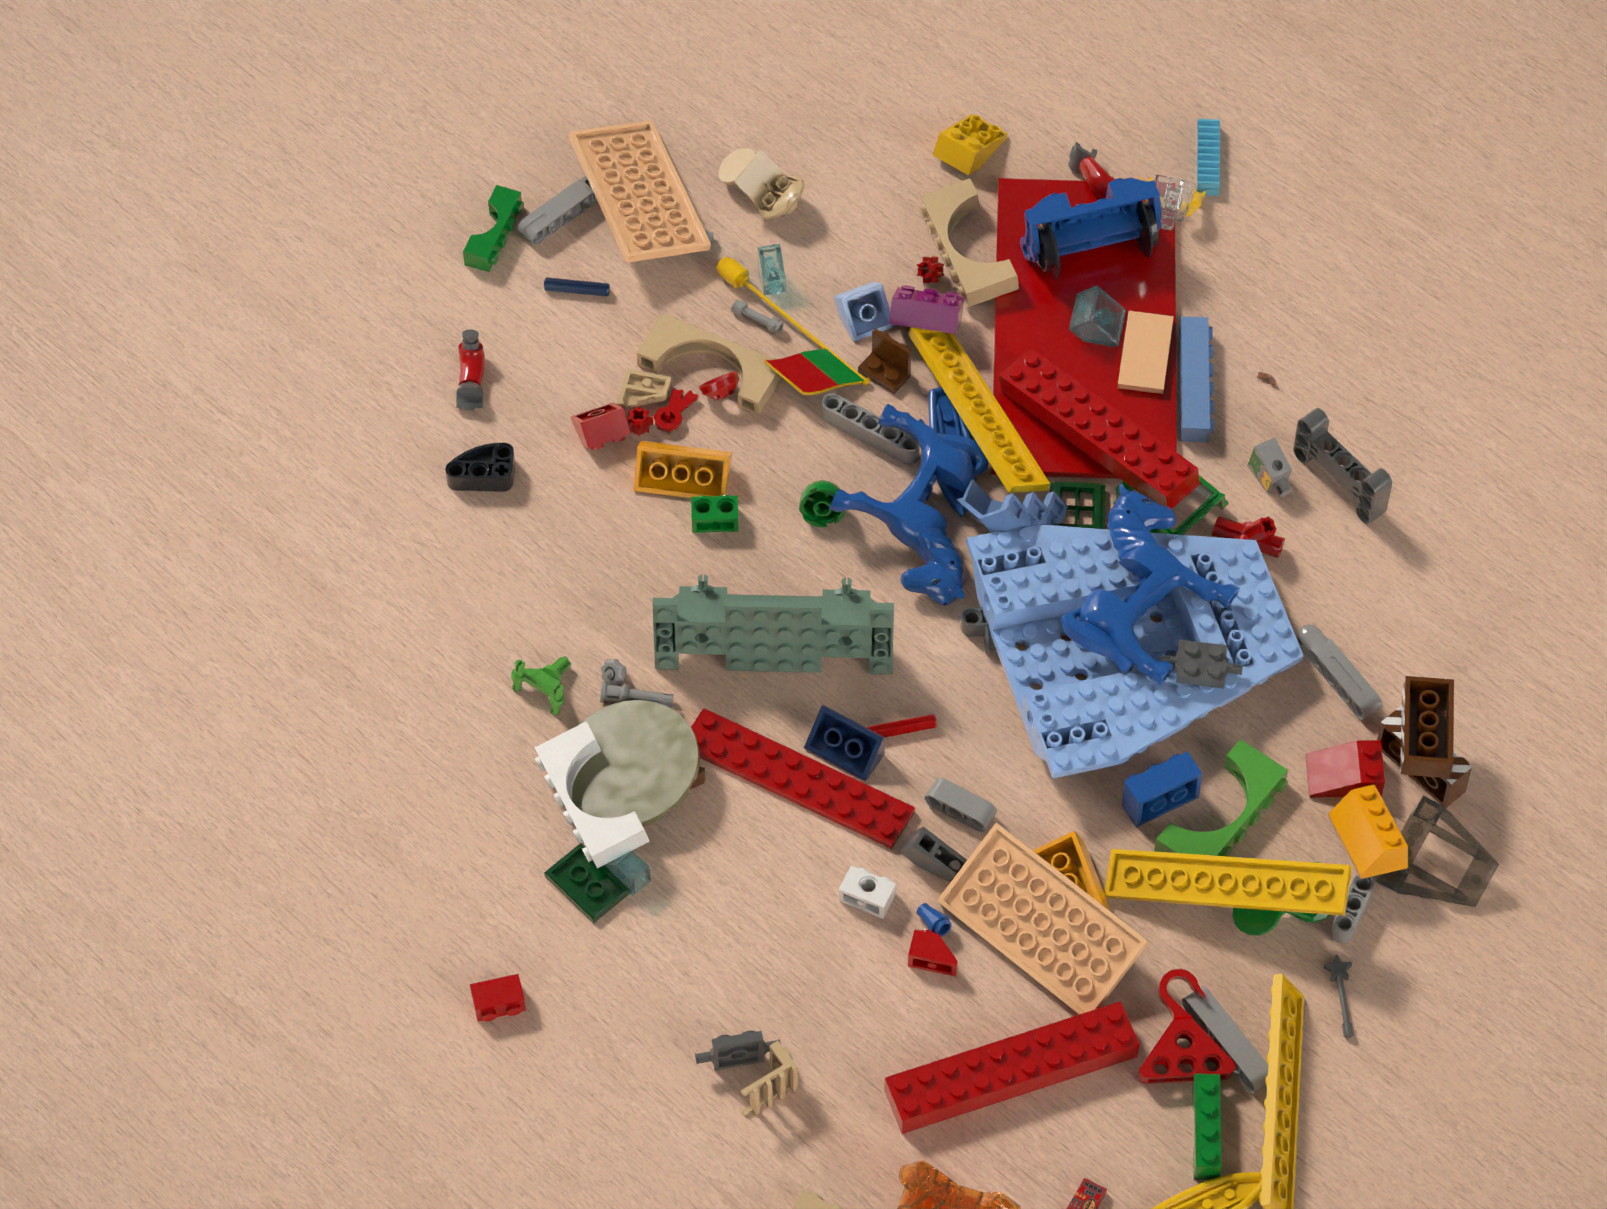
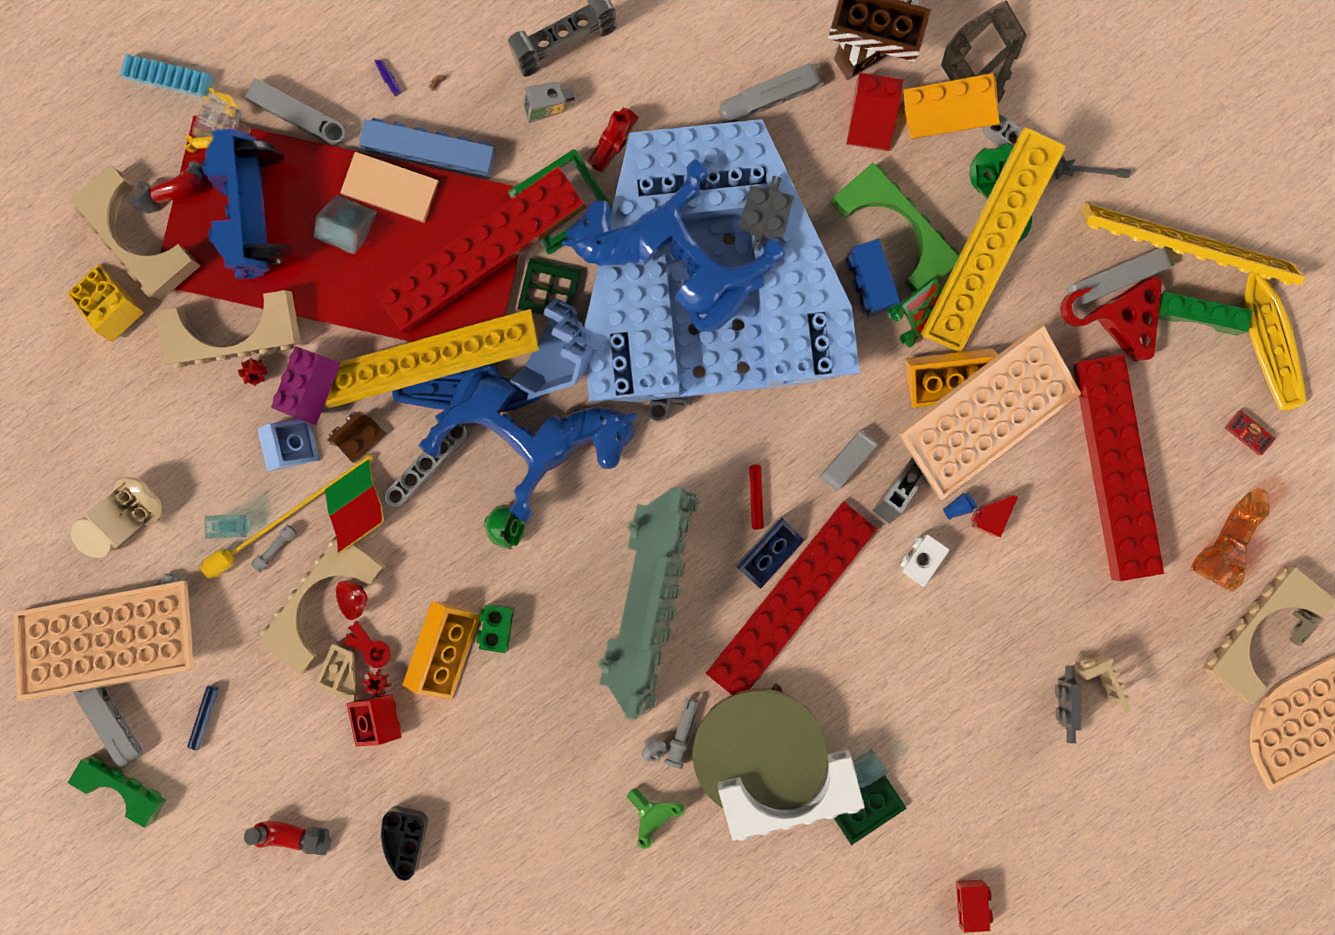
camera: 80 degrees left, 30 degrees up
(1061, 124) = (100, 205): none -> tan arch
(1140, 835) = (917, 310): none -> green flag
(1200, 264) = (295, 112): none -> light grey piece
(1259, 337) = (388, 77): none -> dark purple piece

